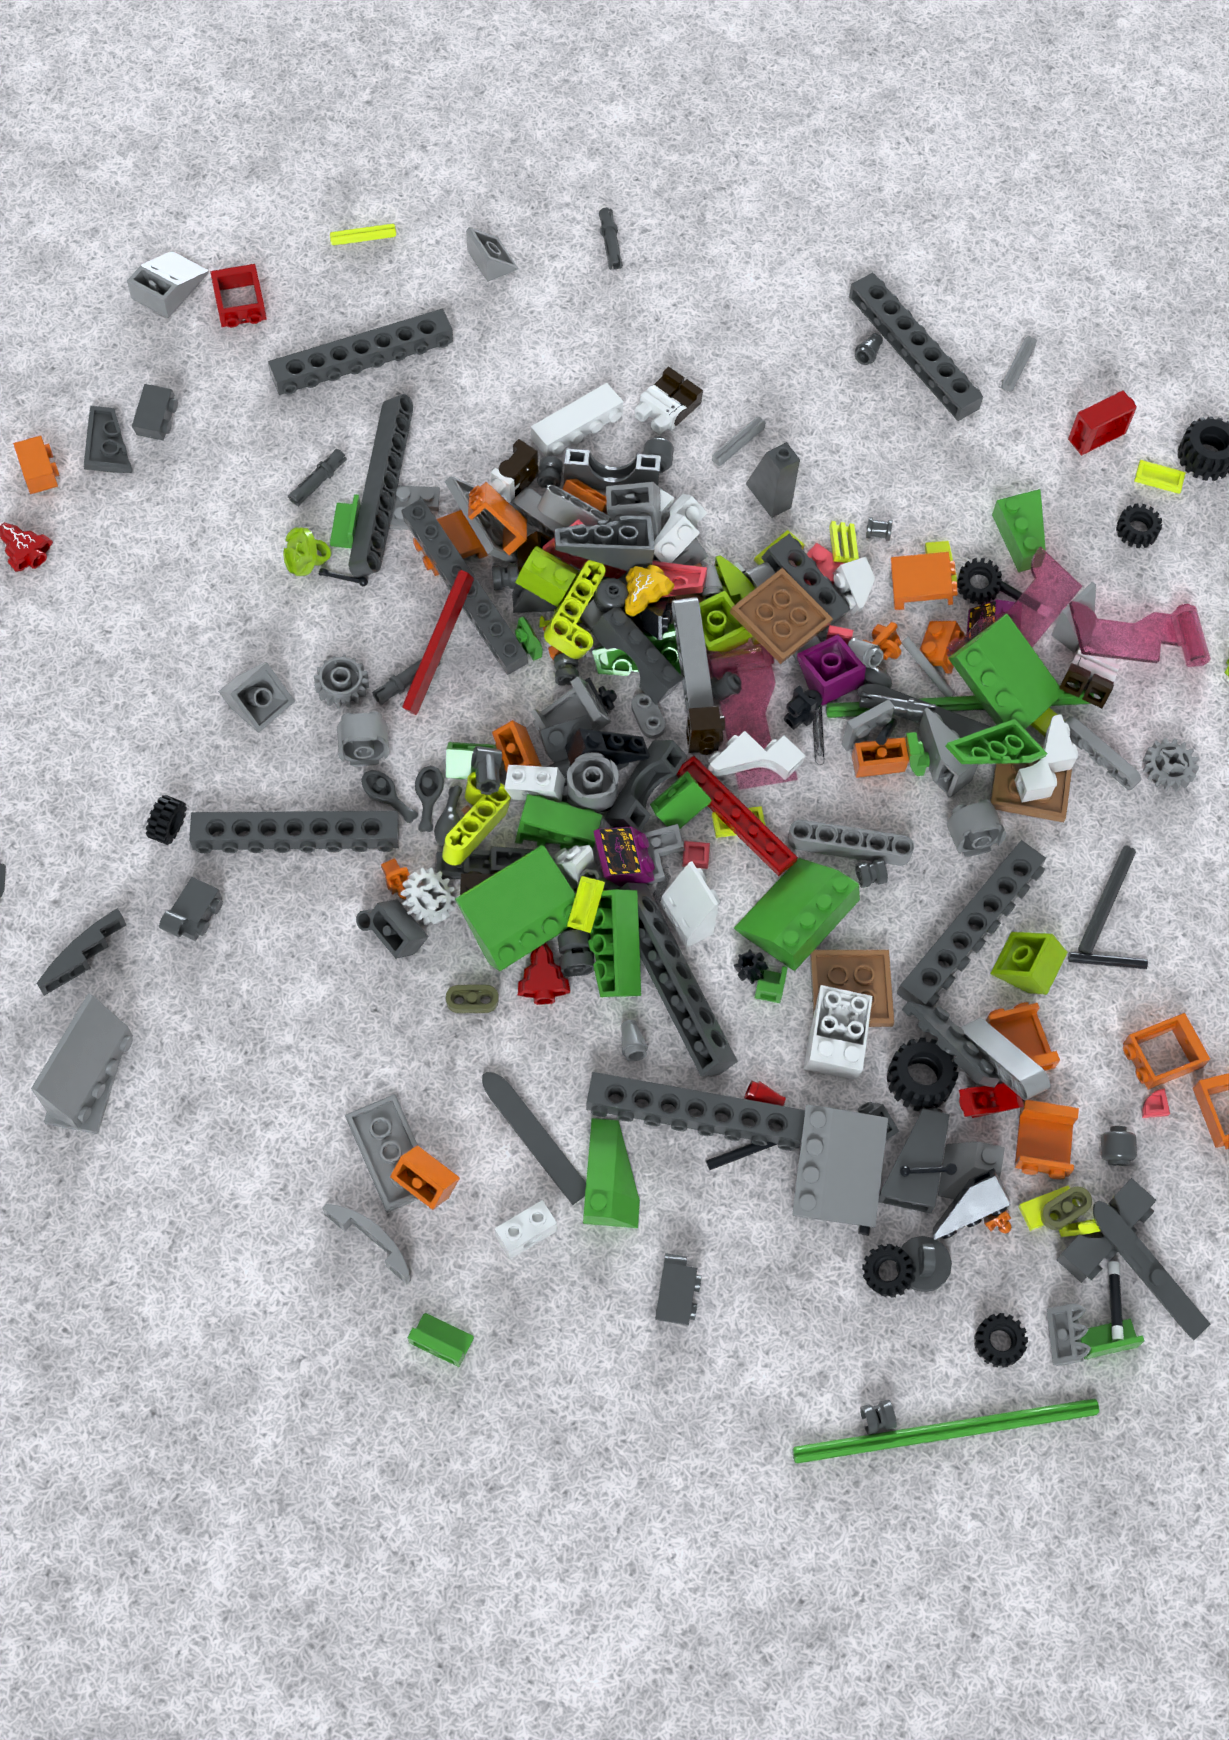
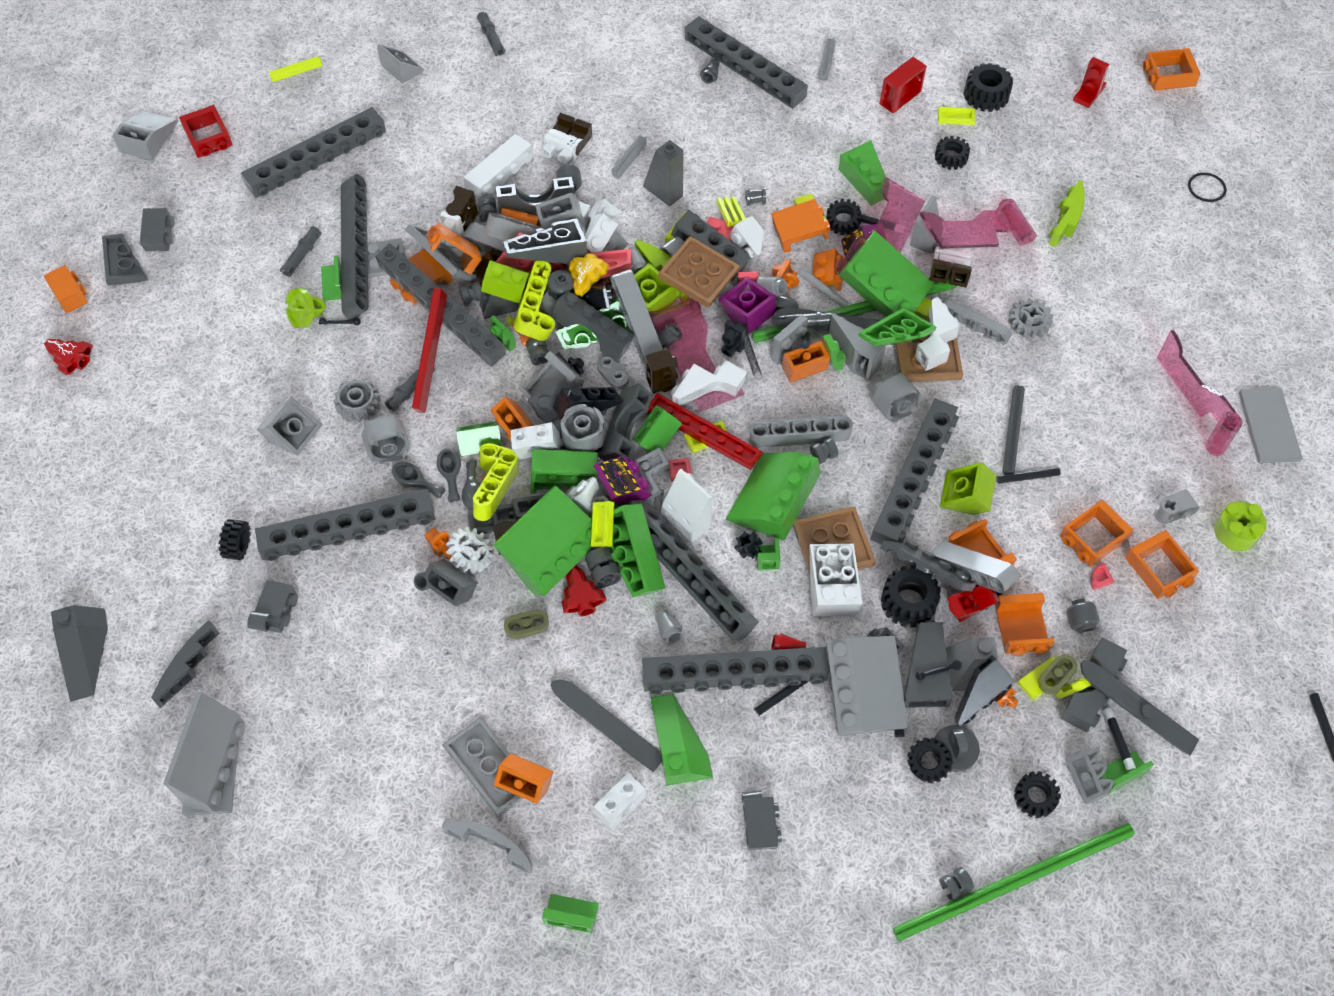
camera: 10 degrees left, 5 degrees down
(487, 766) = (493, 435): dark grey piece -> none

